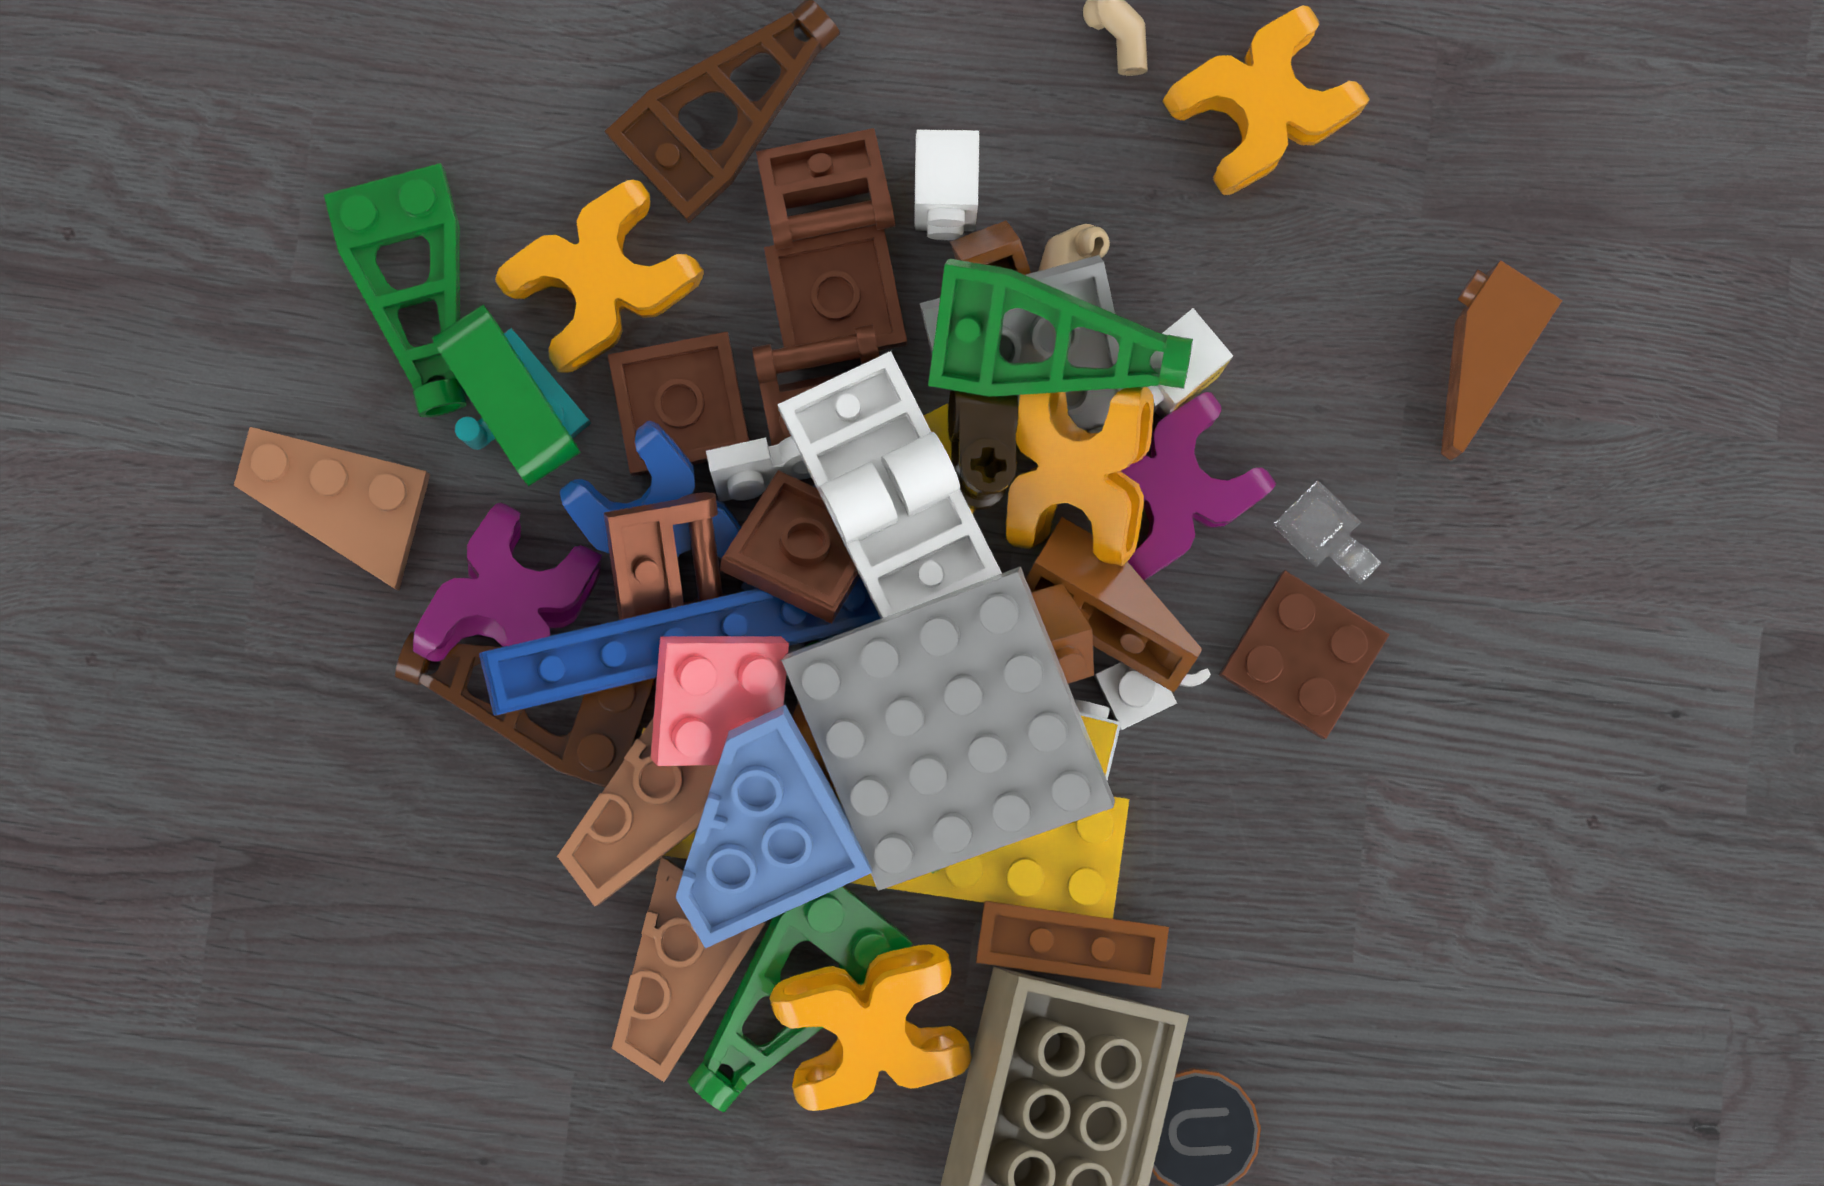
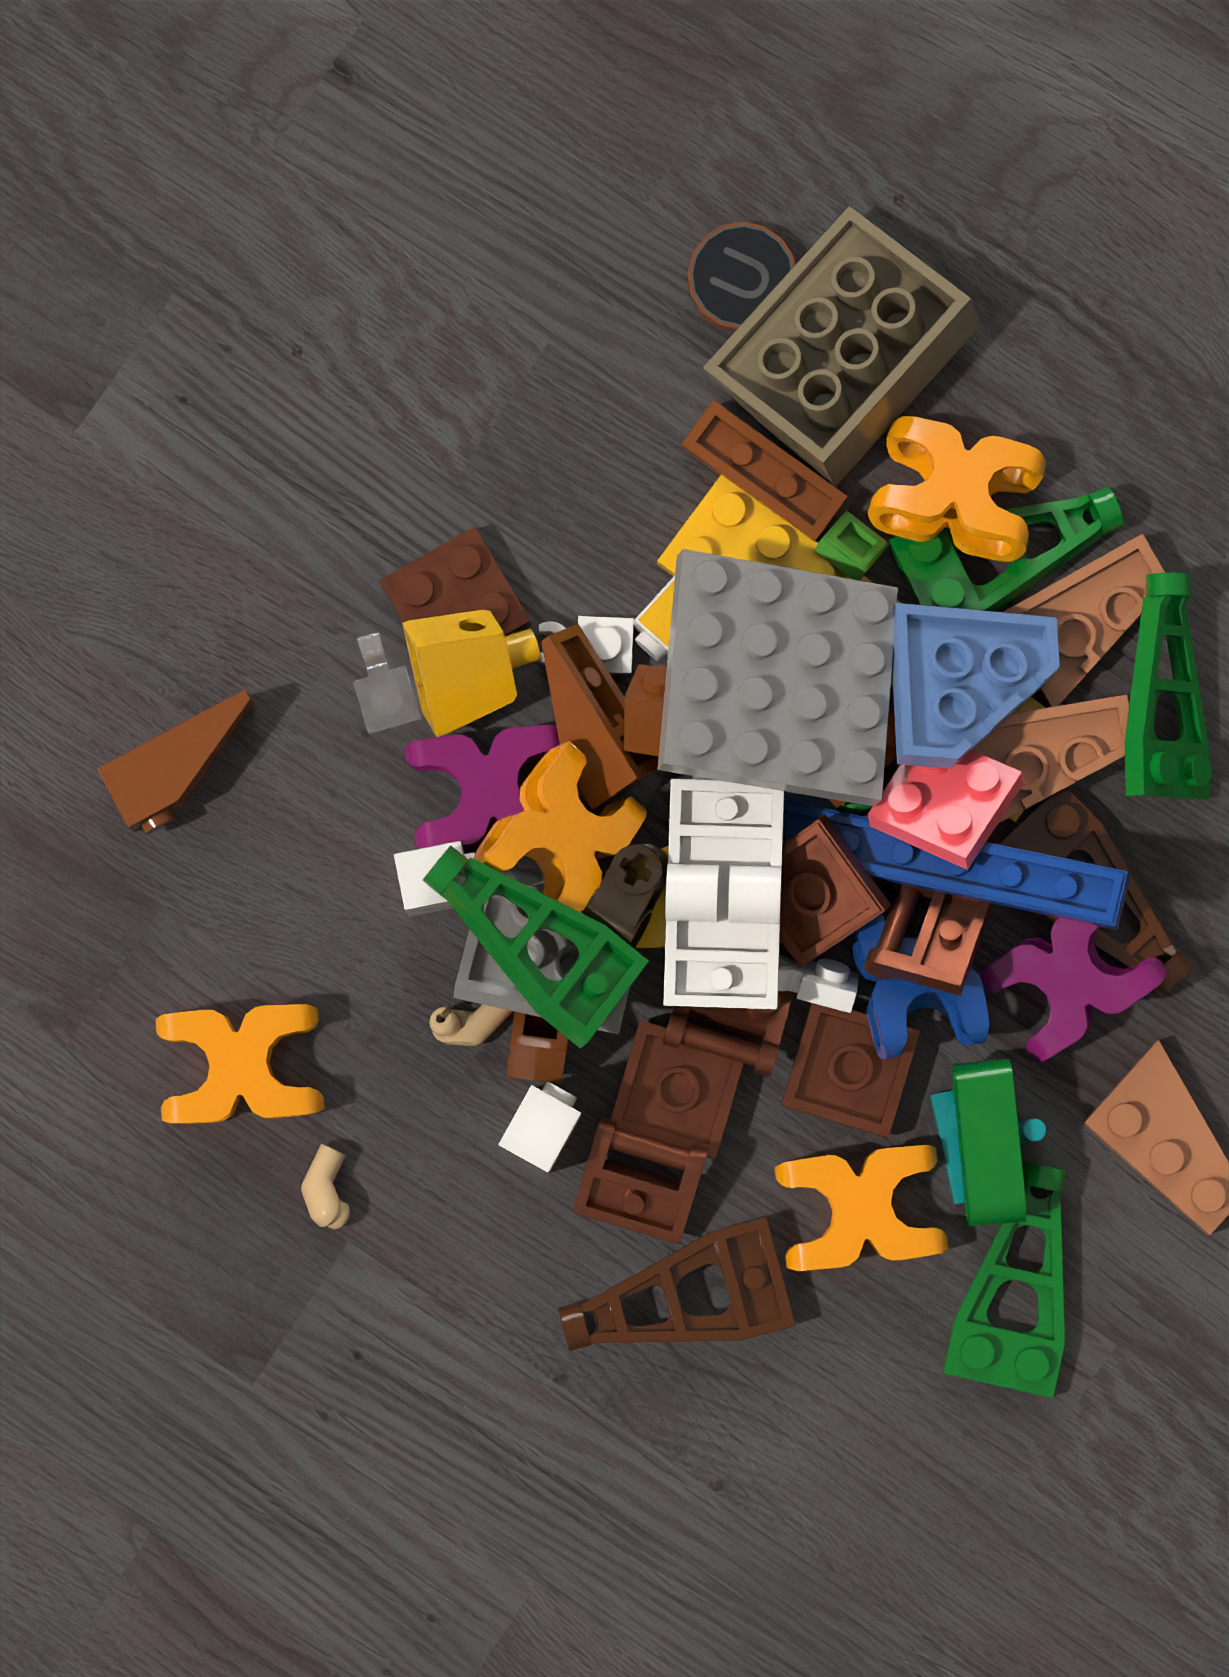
camera: 155 degrees left, 0 degrees up
(504, 867) = (1153, 765): none -> green plate
(945, 914) = (851, 546): none -> bright green tile
(1261, 590) = (465, 666): none -> yellow torso

